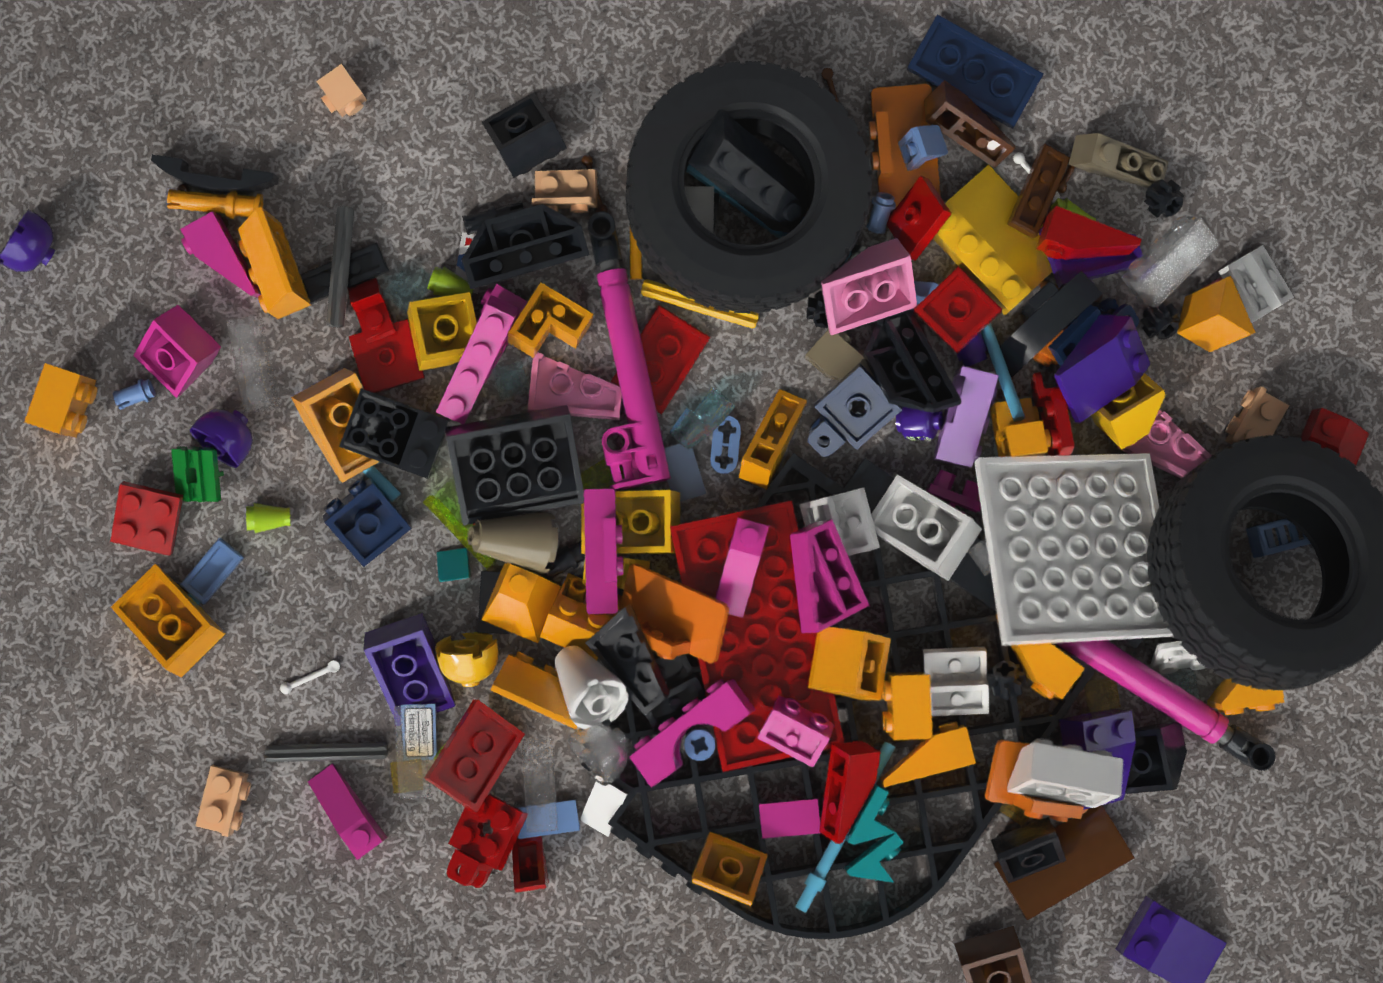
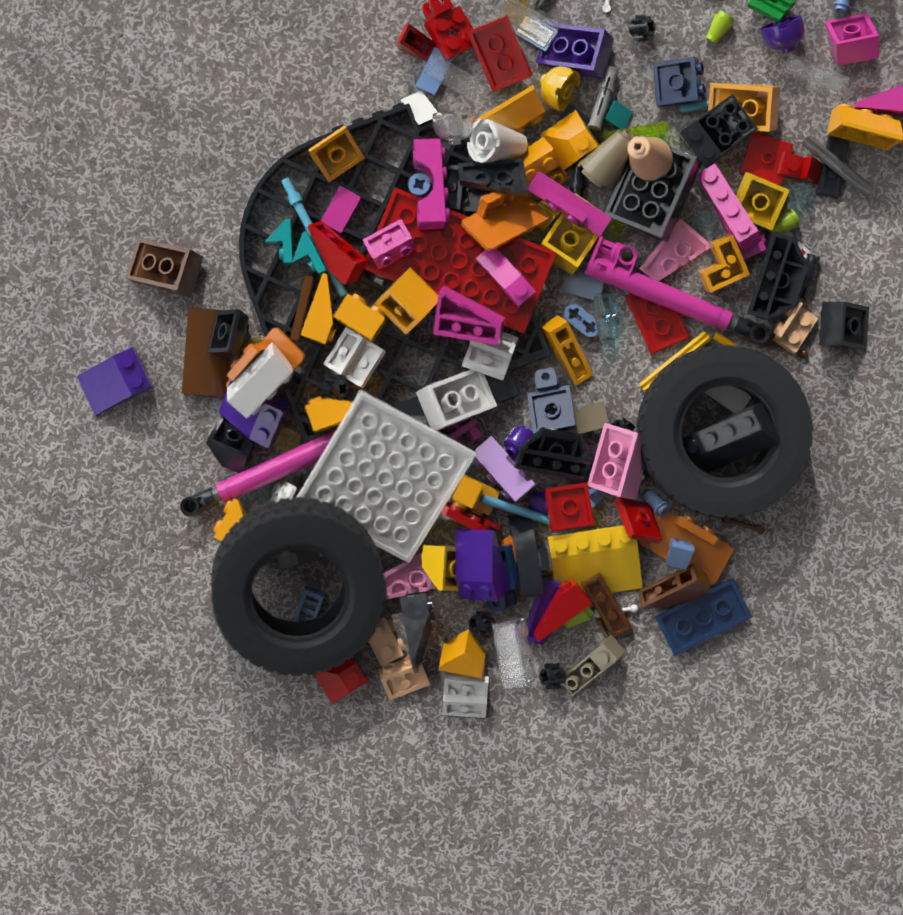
camera: 130 degrees right, 0 degrees up
(329, 608) = (642, 27): none -> black gear
(411, 607) = (609, 76): none -> light grey pin
(483, 490) = (649, 157): none -> light nougat cone
(940, 782) = (302, 308): none -> reddish brown tile
(1218, 393) = (417, 619): none -> black slope
(1282, 371) = (400, 679): none -> light nougat bracket

